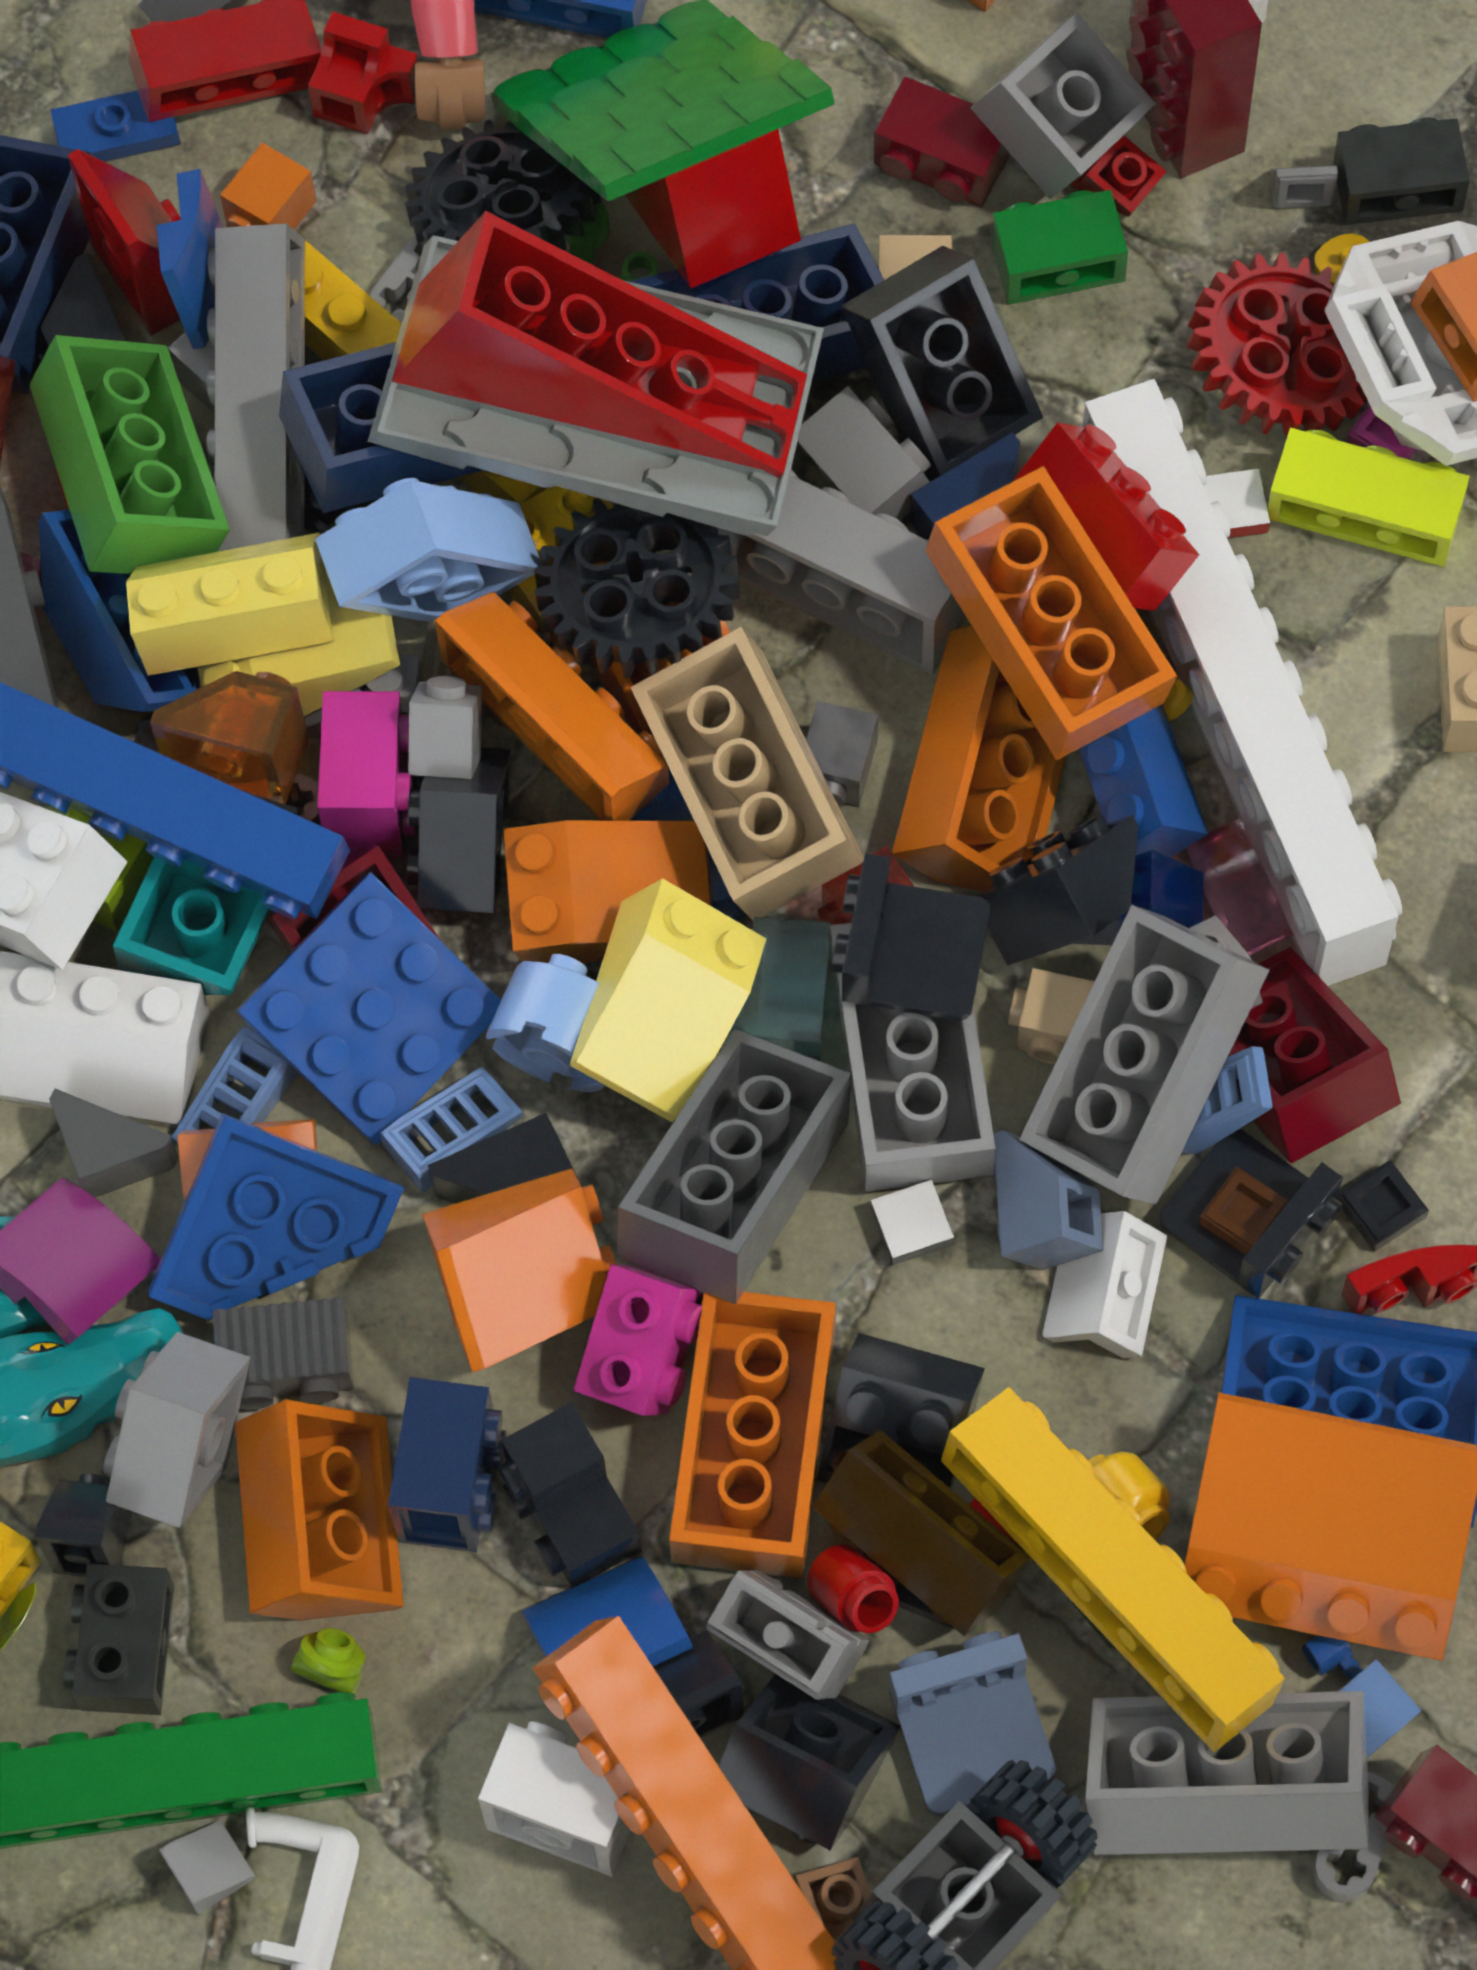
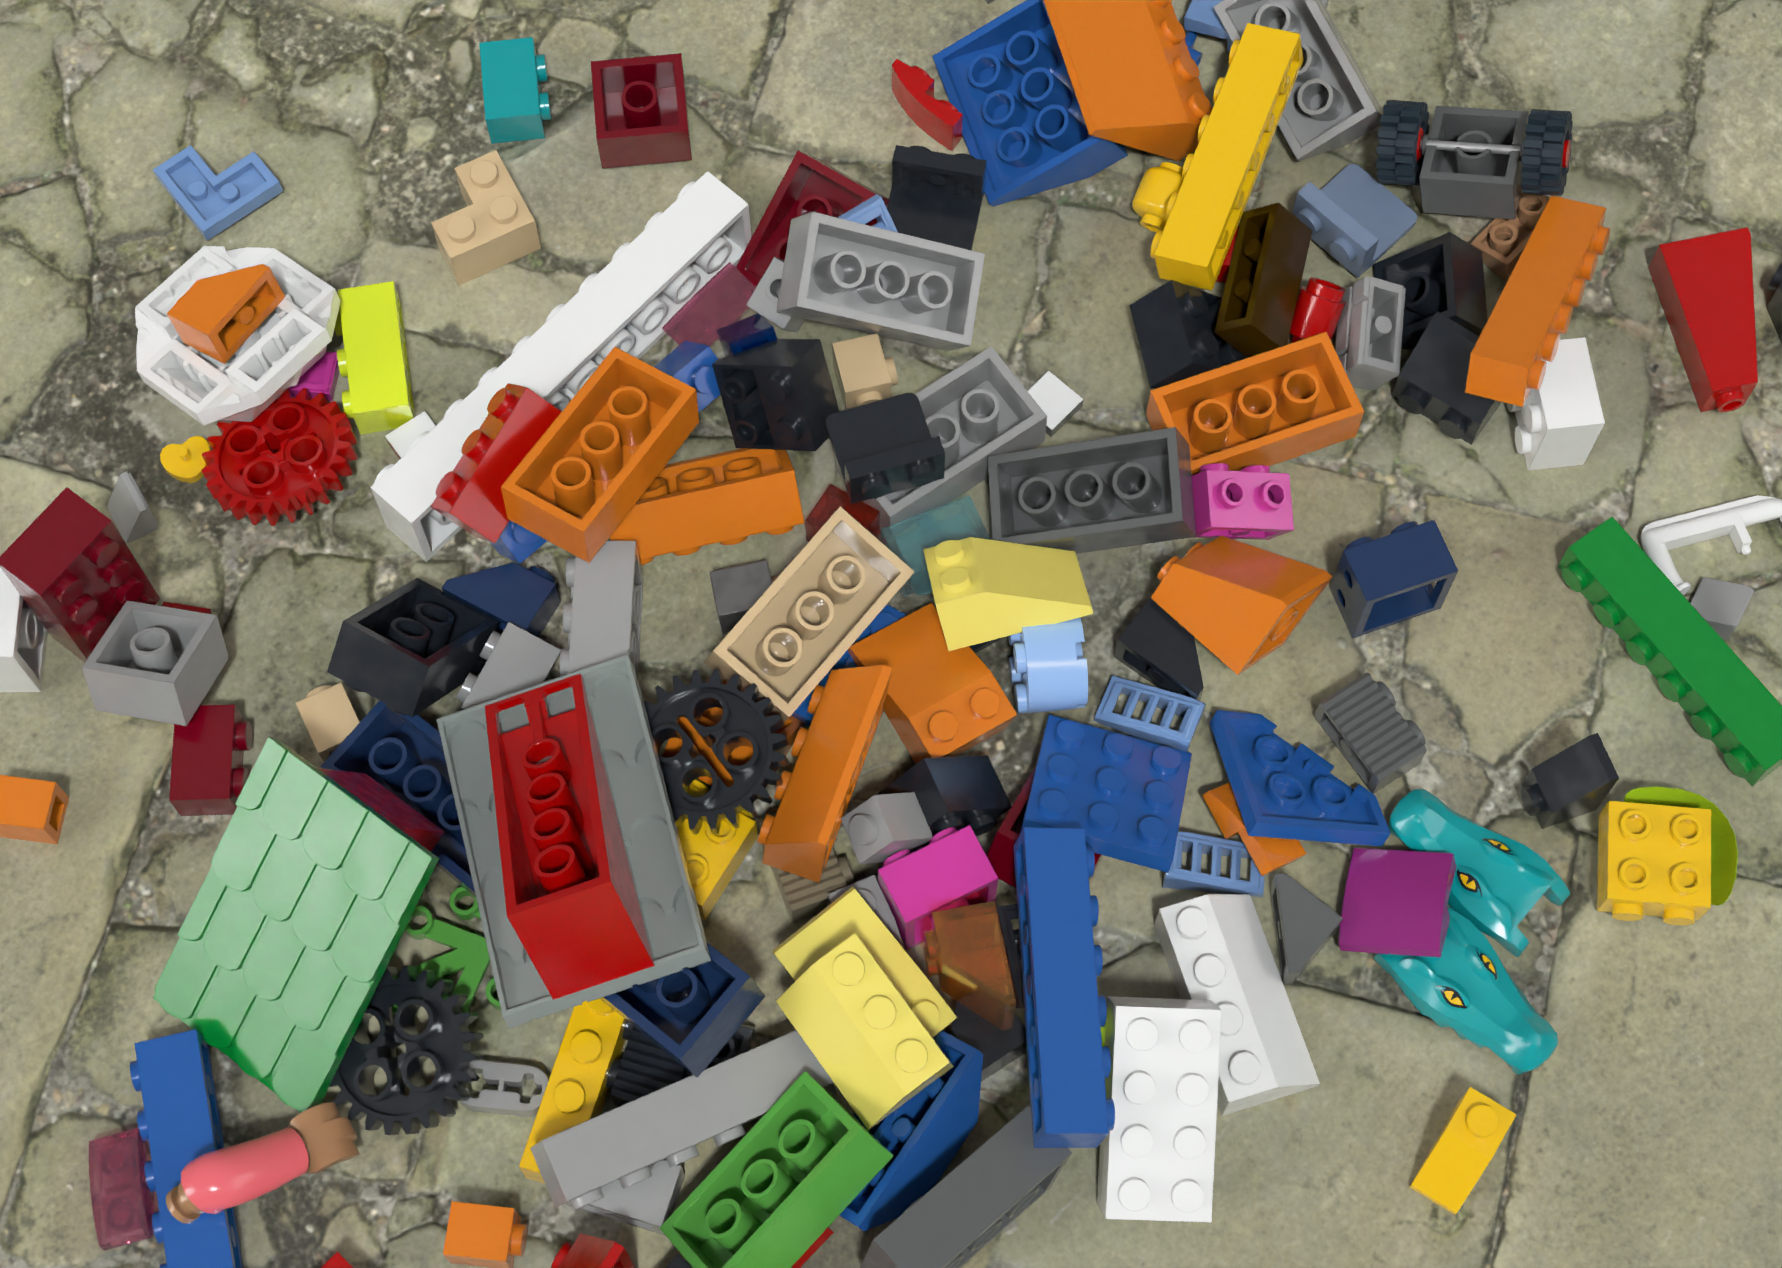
camera: 120 degrees left, 0 degrees up
(121, 1639) = (1628, 722): pearl dark grey brick -> none
(175, 1428) = (1480, 744): light grey brick -> none
(185, 253) = (597, 1218): blue slope -> none
(190, 928) = (1131, 942): teal slope -> none
(317, 1512) = (1464, 654): orange slope -> none
(330, 1660) = (1545, 601): lime plate -> none
(359, 74) = (339, 1222): red brick -> none
(426, 550) = (763, 898): light blue brick -> none
(563, 1485) = (1361, 499): black brick -> none
(624, 1592) = (1431, 437): blue slope -> none
(1043, 1207) = (1005, 318): sand blue slope -> none
(1059, 246) = (264, 641): green brick -> none
(1111, 1291) = (1030, 276): white panel -> none
(1242, 1210) = (938, 210): reddish brown tile -> none
(1382, 1205) = (878, 146): black tile -> none
(1401, 170) = (96, 443): pearl dark grey brick -> none

